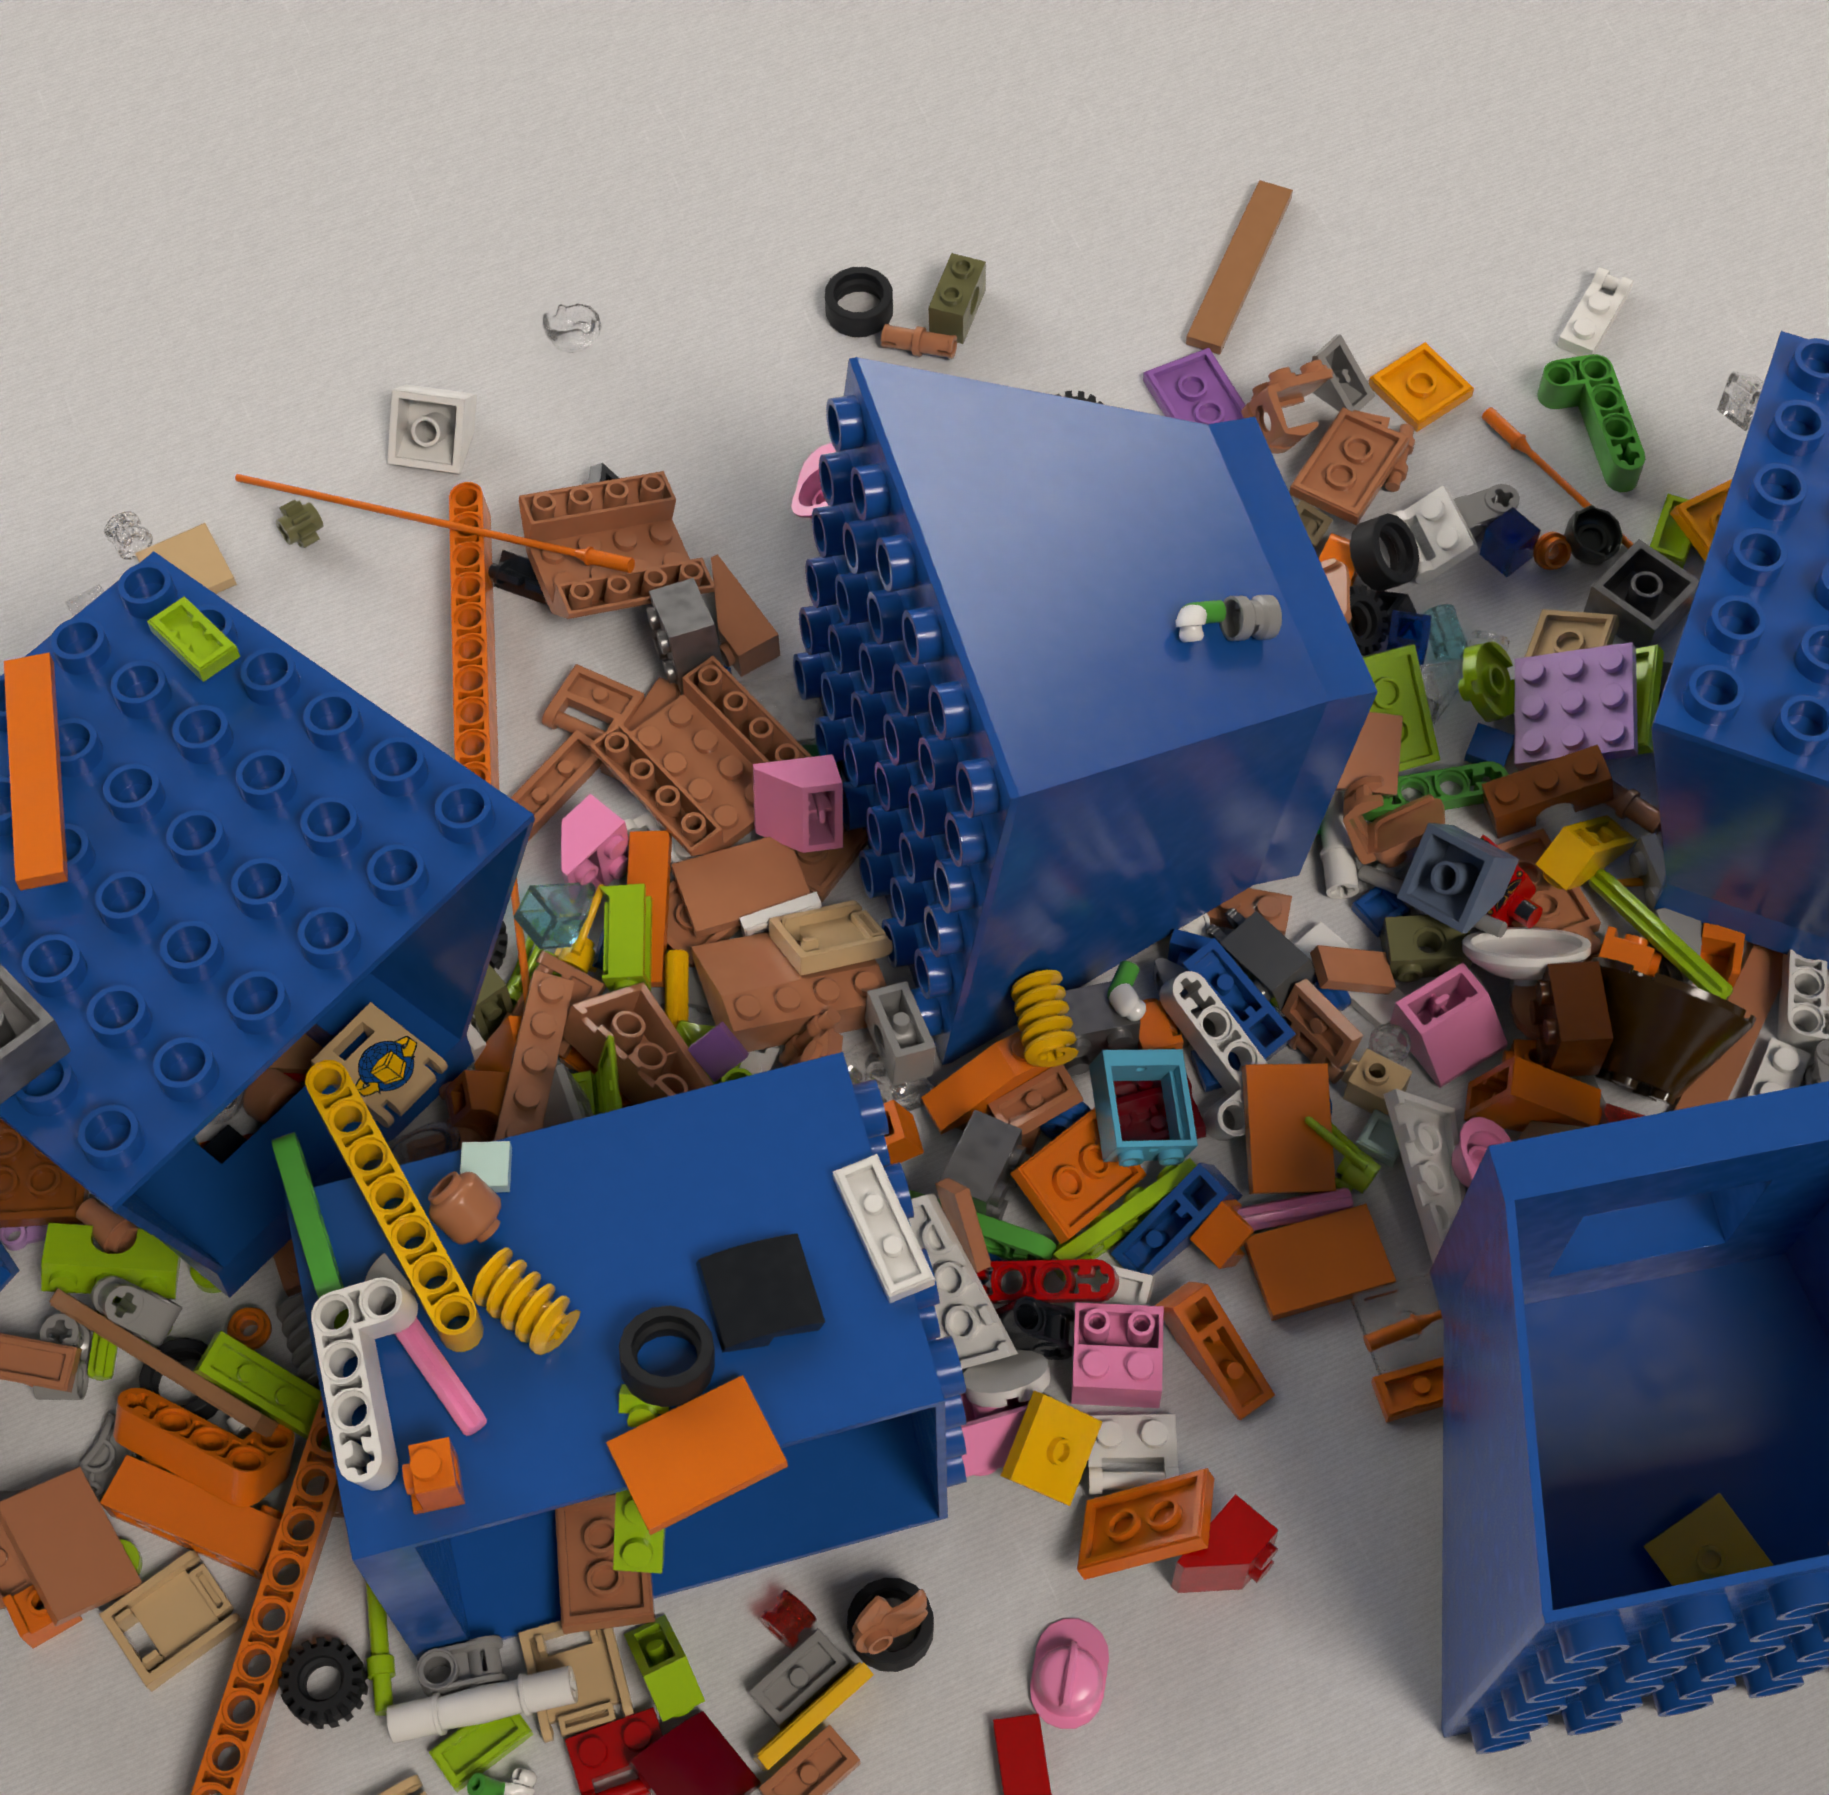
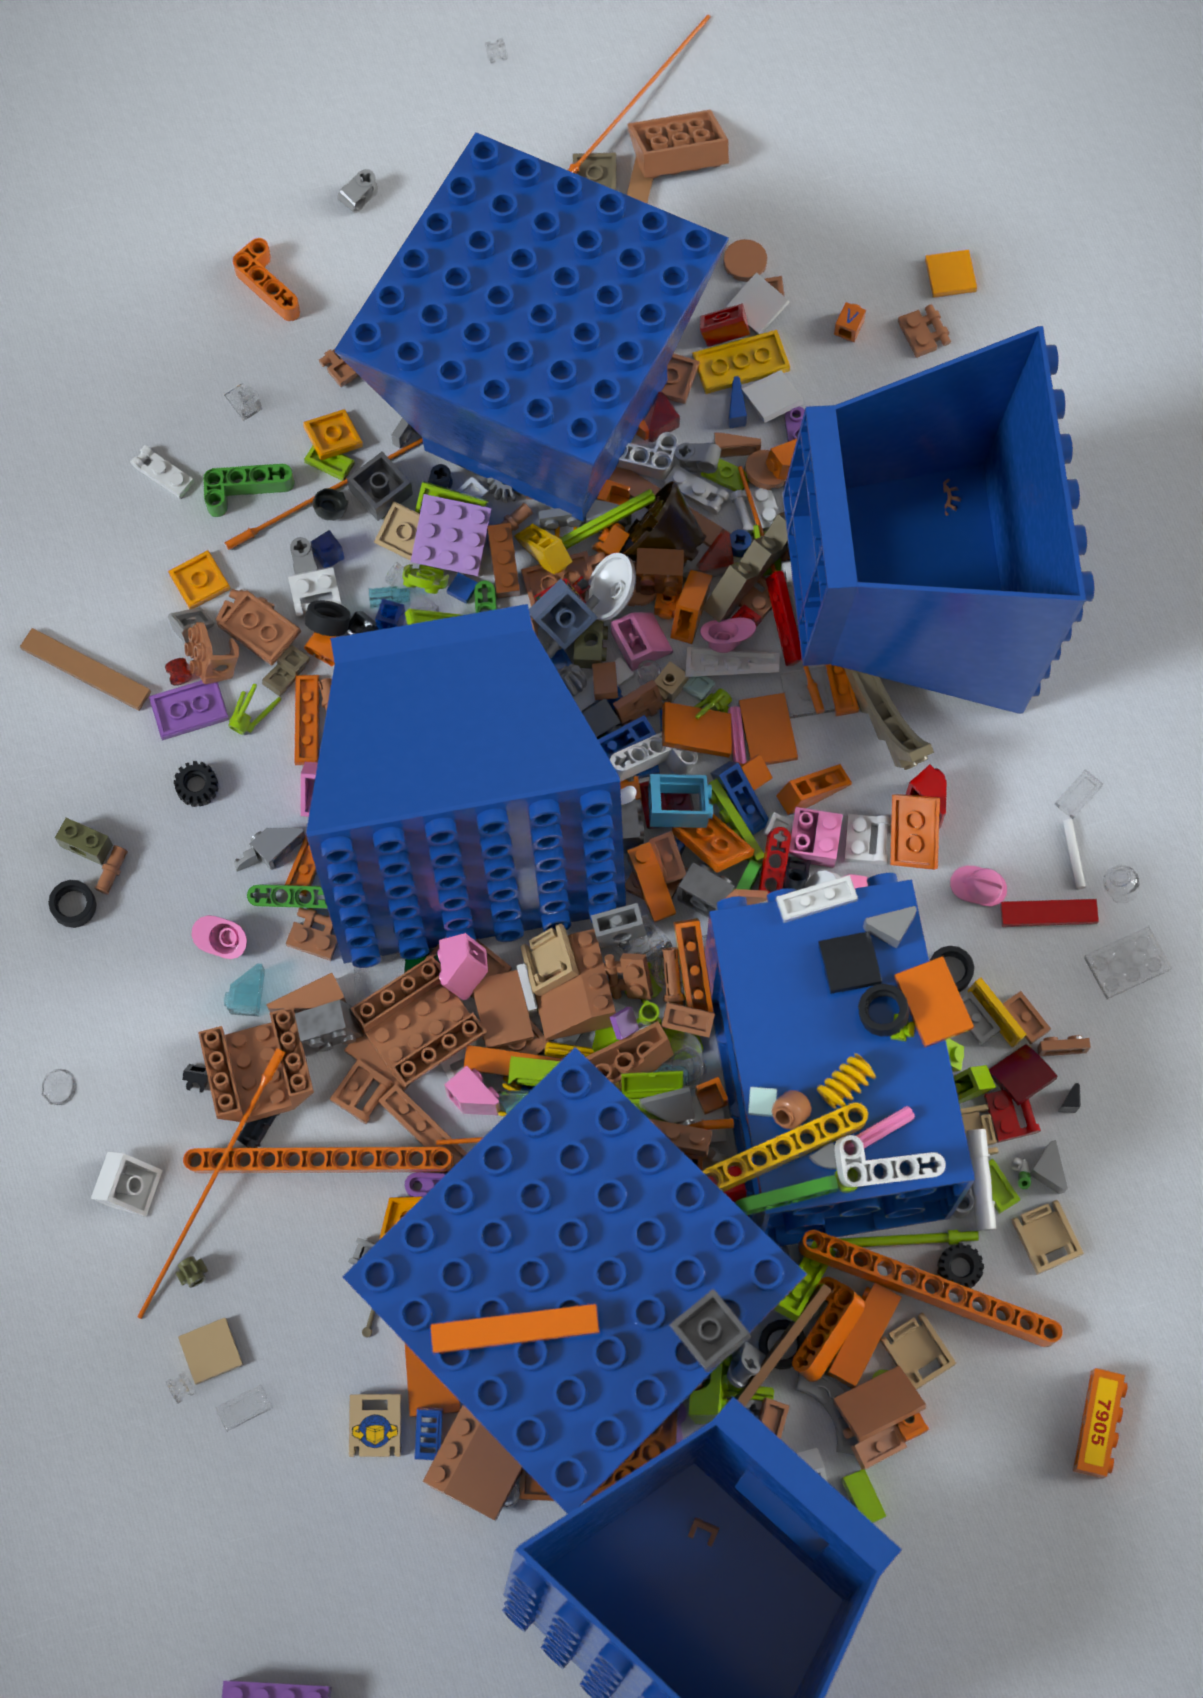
camera: 85 degrees left, 10 degrees up
(193, 639) = (433, 1237): lime plate -> none
(433, 1476) = (939, 1132): orange brick -> none
(742, 535) = (246, 993): none -> clear light blue slope
(835, 1362) = (890, 926): none -> light grey slope
(881, 1623) = (962, 971): nougat plate -> none
(1044, 1019) = (640, 838): yellow piece -> none
(1051, 1448) = (861, 868): yellow plate -> none
(1196, 614) = (488, 683): white arm -> none
(1253, 374) = (178, 671): none -> clear red wheel
(1255, 617) = (487, 655): light grey wheel -> none
(1314, 1479) = (903, 743): none -> dark tan arch
(1340, 914) = (573, 678): none -> light grey gear
(1557, 556) = (337, 528): orange plate -> none
(1706, 1545) = (958, 565): yellow plate -> none

